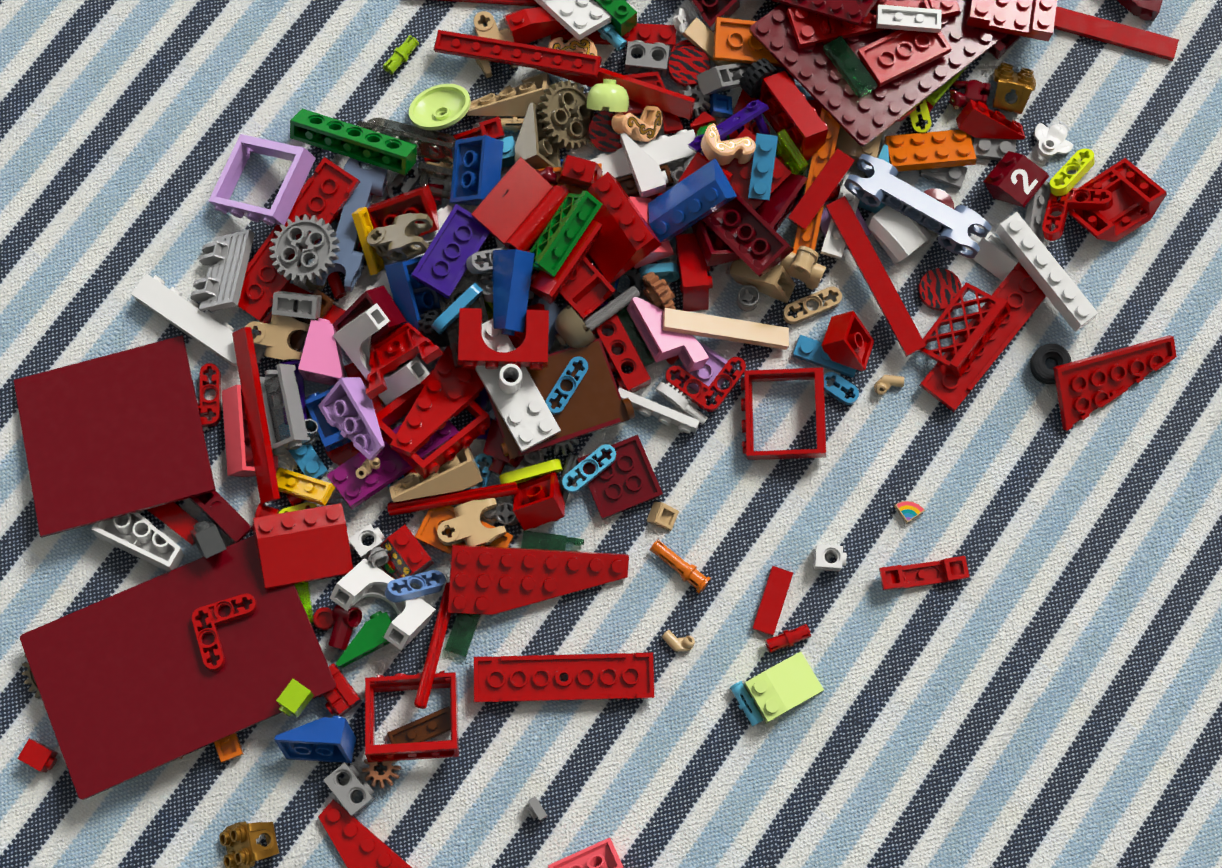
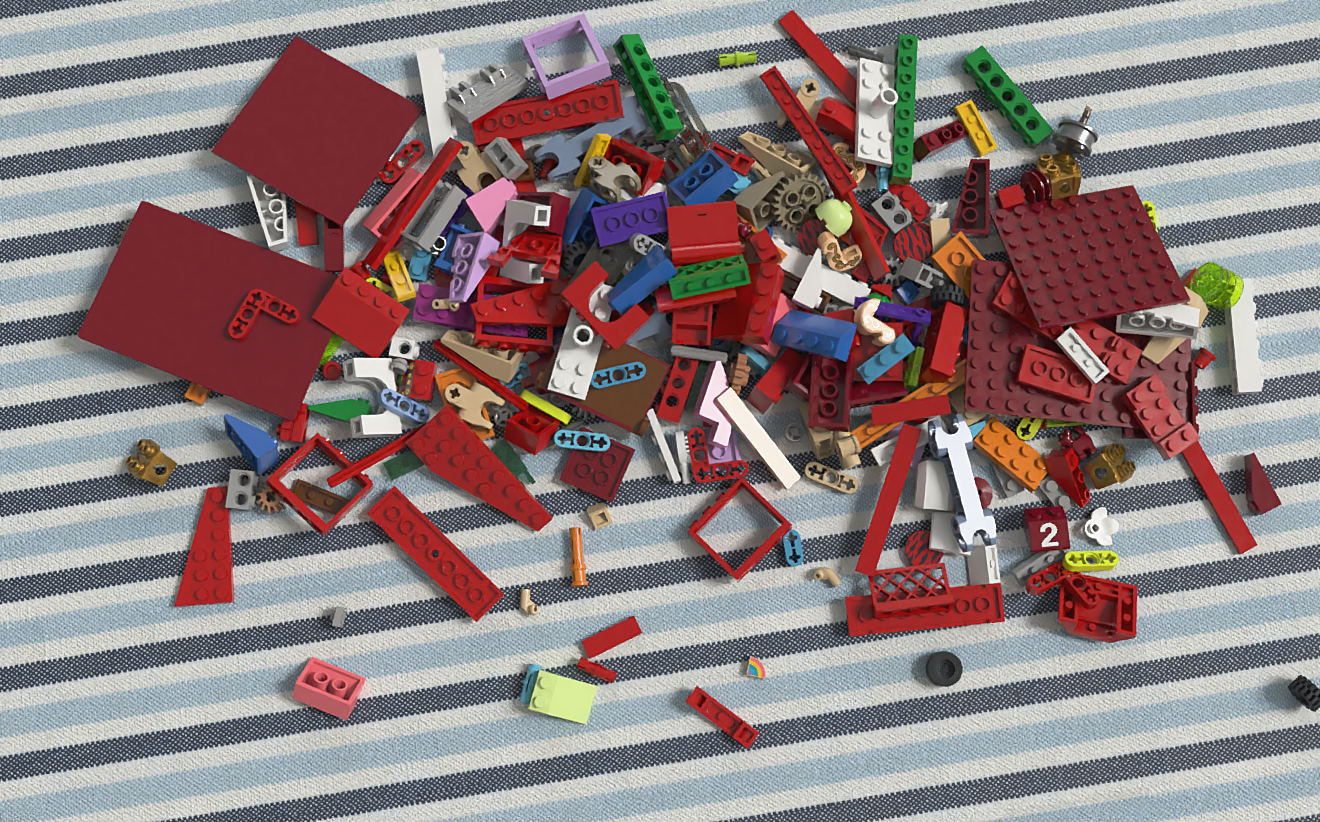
camera: 45 degrees right, 5 degrees up
(38, 756) = (84, 284): red brick -> none
(207, 539) = (308, 252): dark grey brick -> none
(294, 698) = (259, 403): lime brick -> none
(322, 252) = (537, 113): light grey gear -> none
(344, 625) = (336, 388): dark red piece -> none
(439, 107) = (725, 117): yellowish green dish -> none
(452, 311) = (600, 258): dark azure beam -> none
(572, 329) = (658, 343): dark tan cylinder -> none
(812, 351) = (806, 519): dark azure plate -> none
(819, 558) = (664, 644): white brick -> none
(848, 341) = (827, 524): red slope -> none
(850, 67) = (1010, 349): clear green plate -> none
(944, 262) = (942, 535): none -> white slope
(1046, 272) = (1000, 608): white brick -> none
(1102, 378) = (967, 712): red wing -> none

